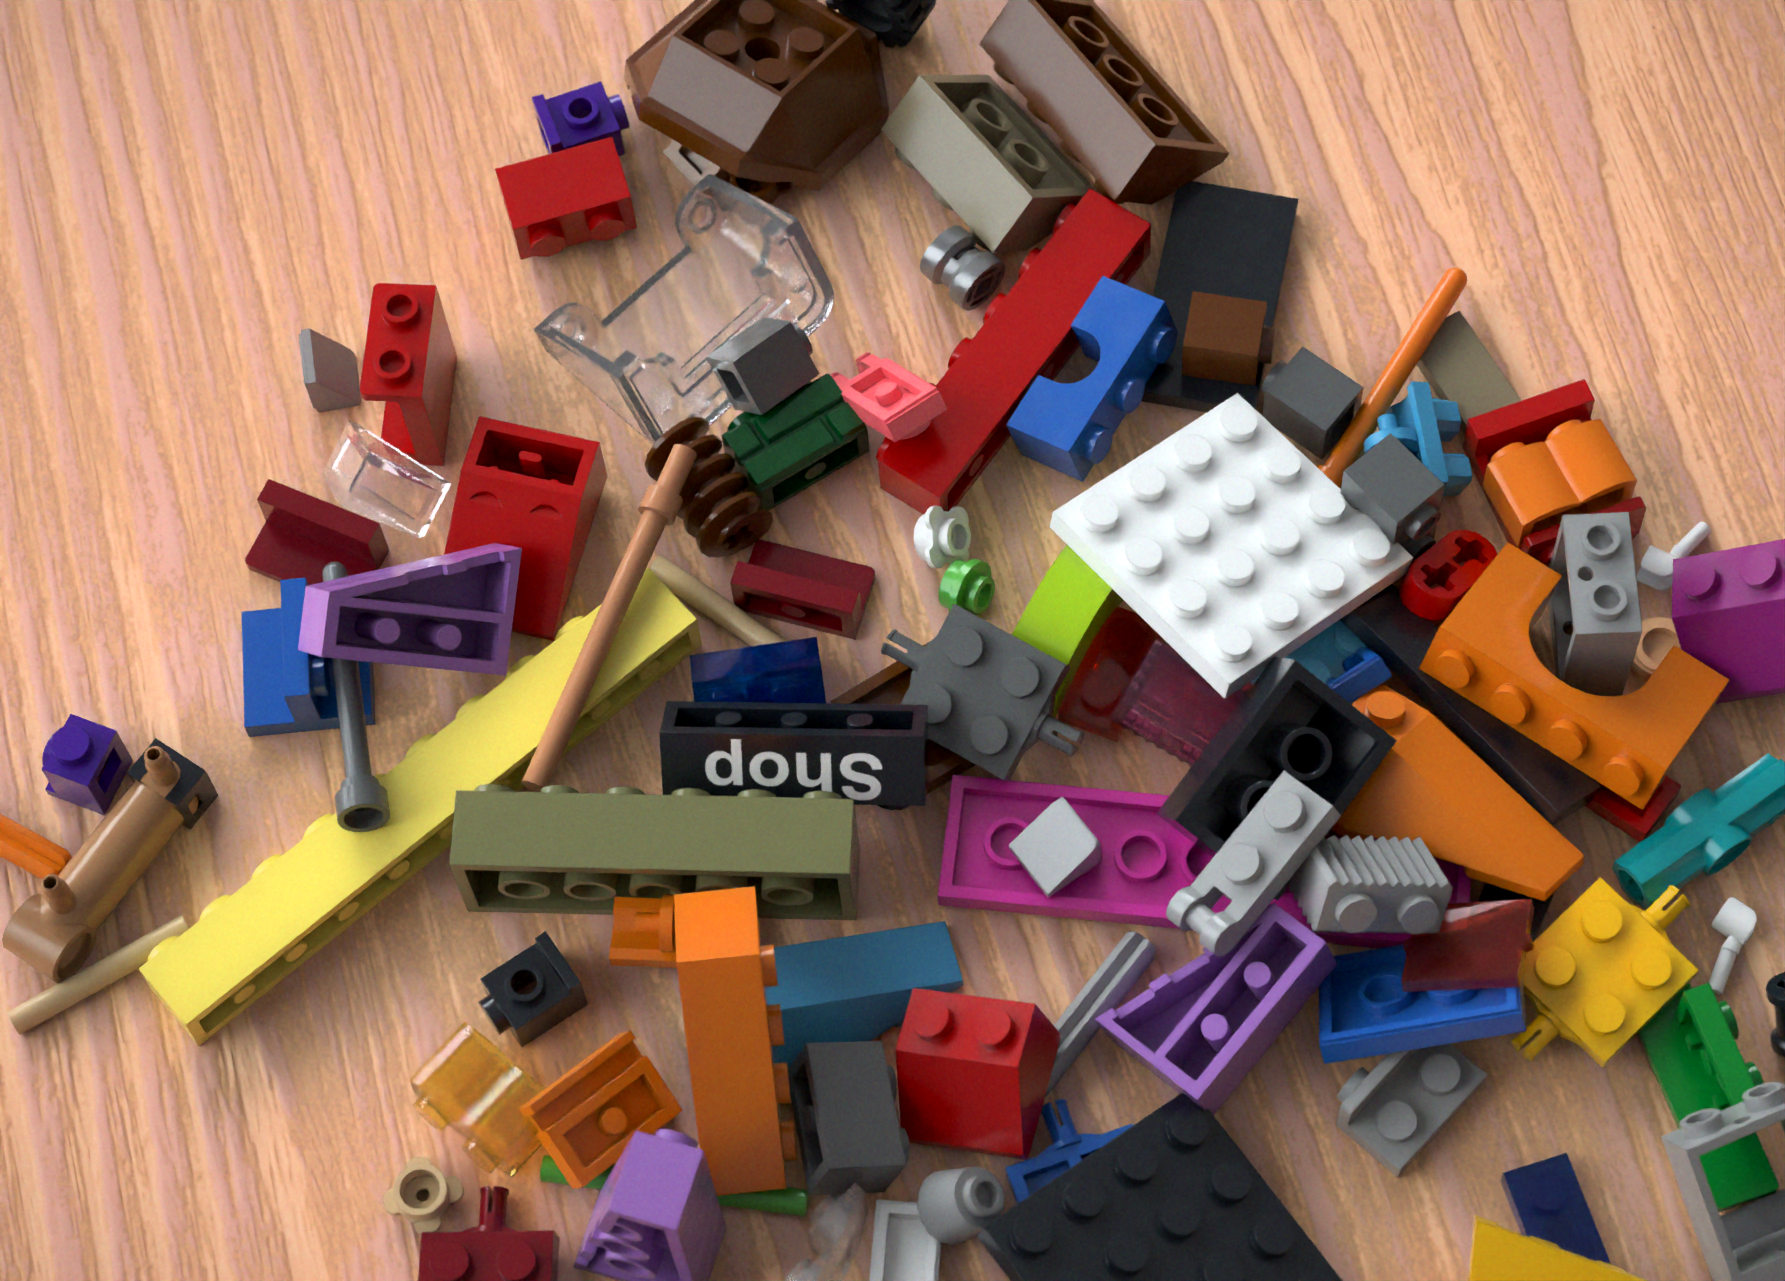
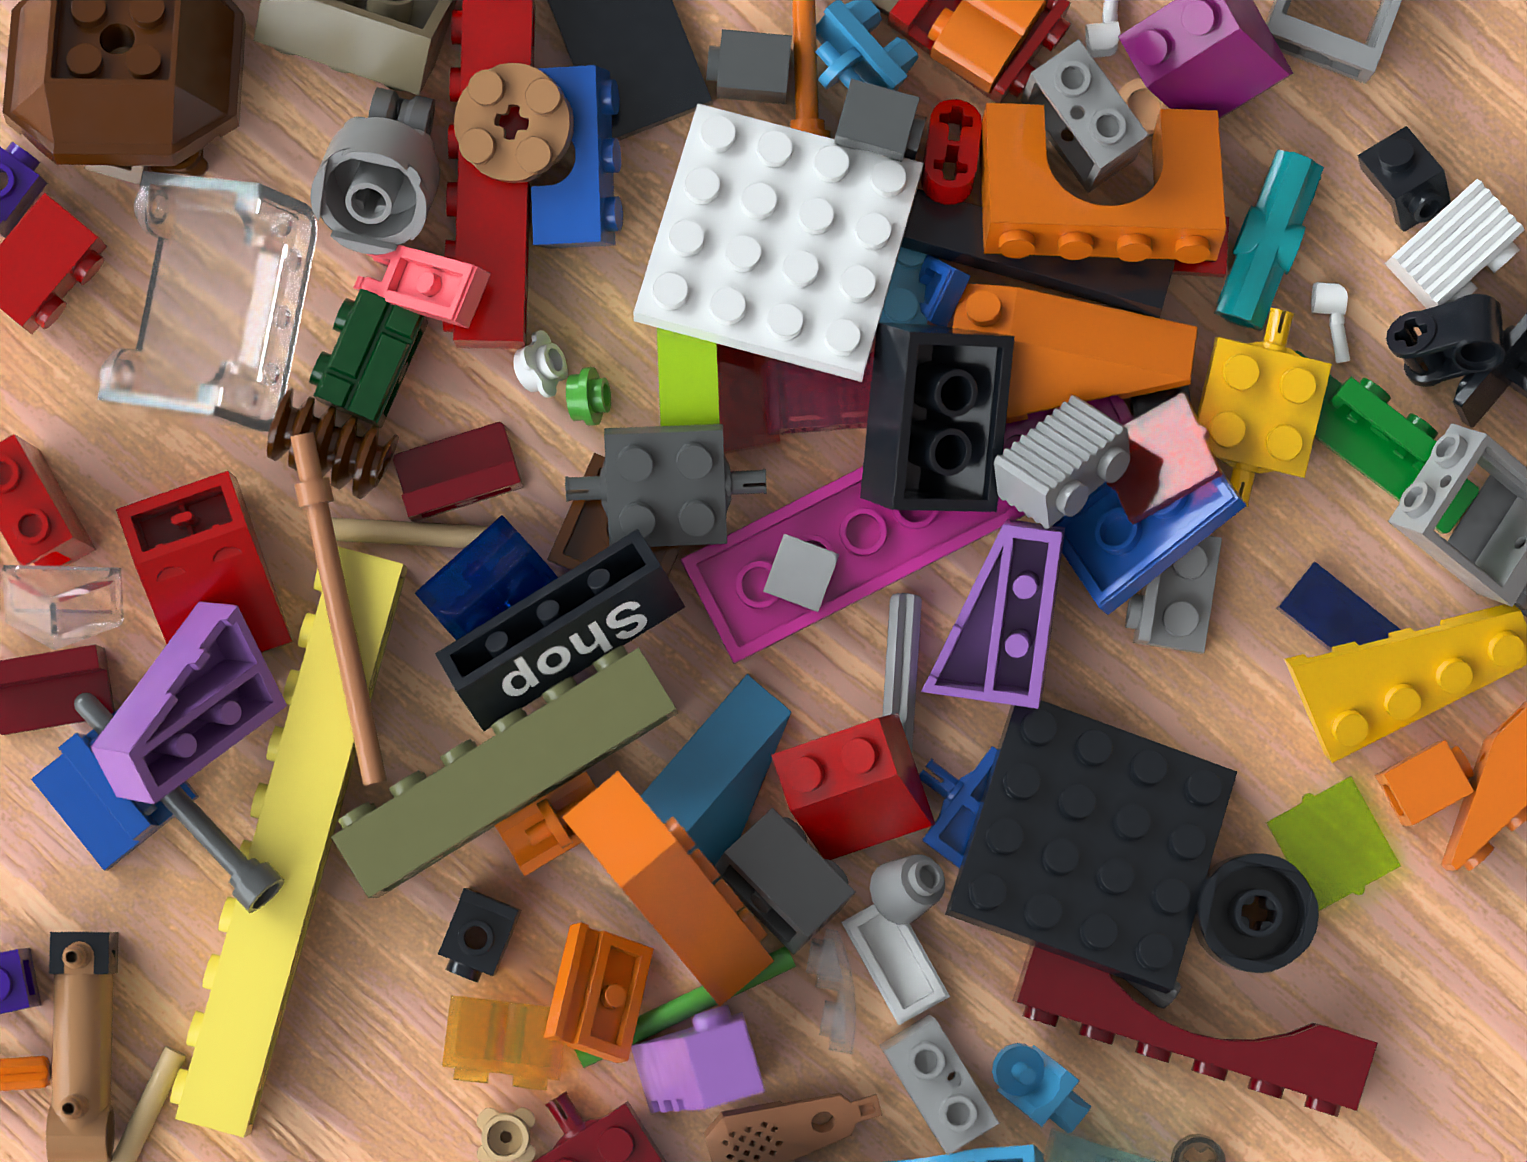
camera: 45 degrees left, 20 degrees up
(763, 364) = (308, 315): dark grey brick -> none
(901, 294) = (376, 184): none -> light grey brick
(1051, 276) = (493, 95): none -> medium nougat plate
(1226, 338) = (657, 58): reddish brown brick -> none
(1253, 864) = (972, 505): light grey plate -> none

